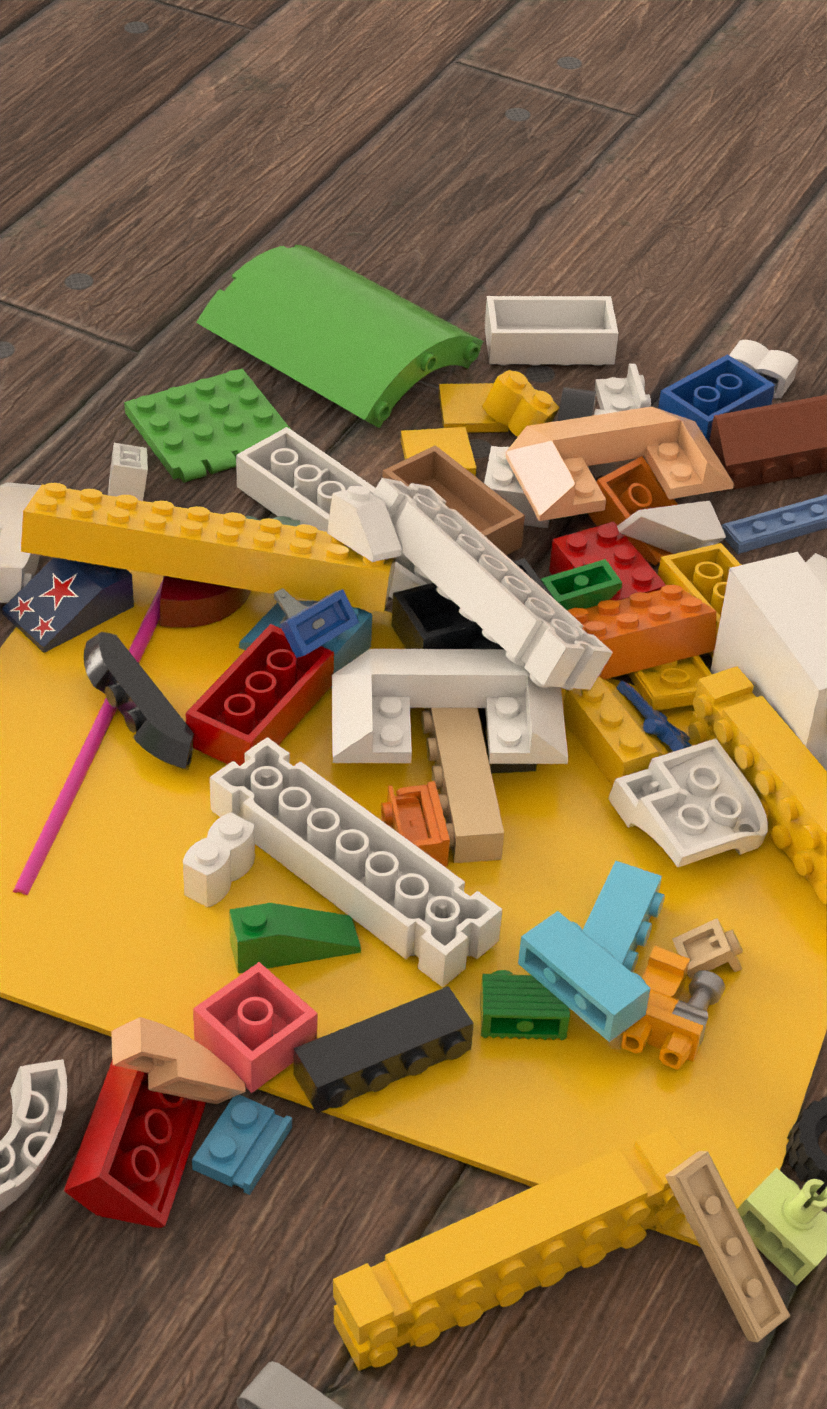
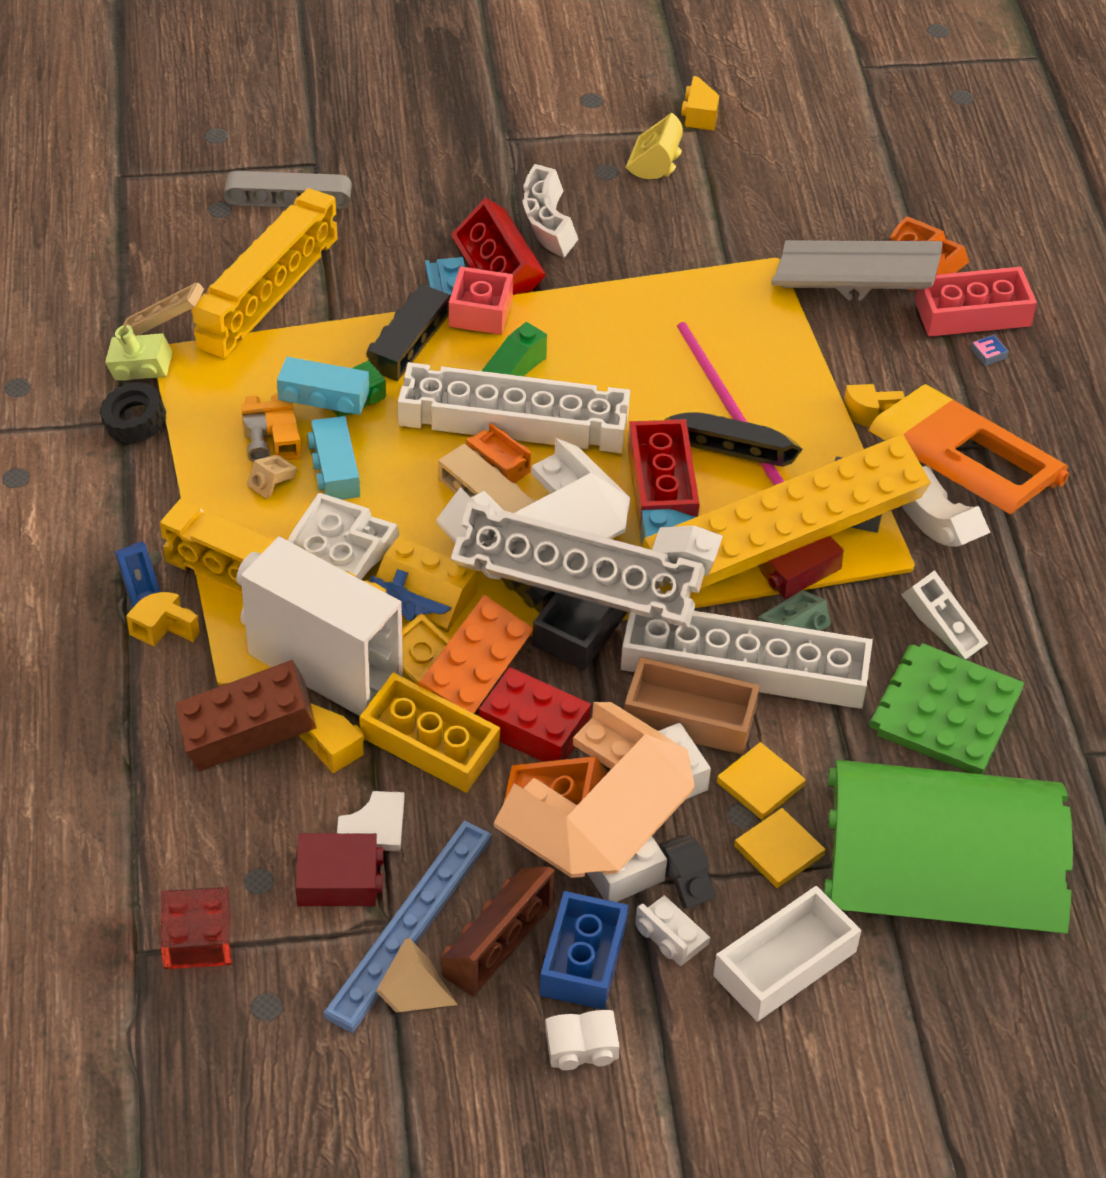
camera: 145 degrees right, 5 degrees up
(174, 1062) = (506, 249): light nougat slope -> none
(219, 859) = (588, 366): brick -> none
(317, 624) = (666, 502): blue piece -> none
(518, 404) = (737, 835): yellow brick -> none
(584, 585) = (534, 653): green slope -> none
(675, 526) = (512, 764): white slope -> none

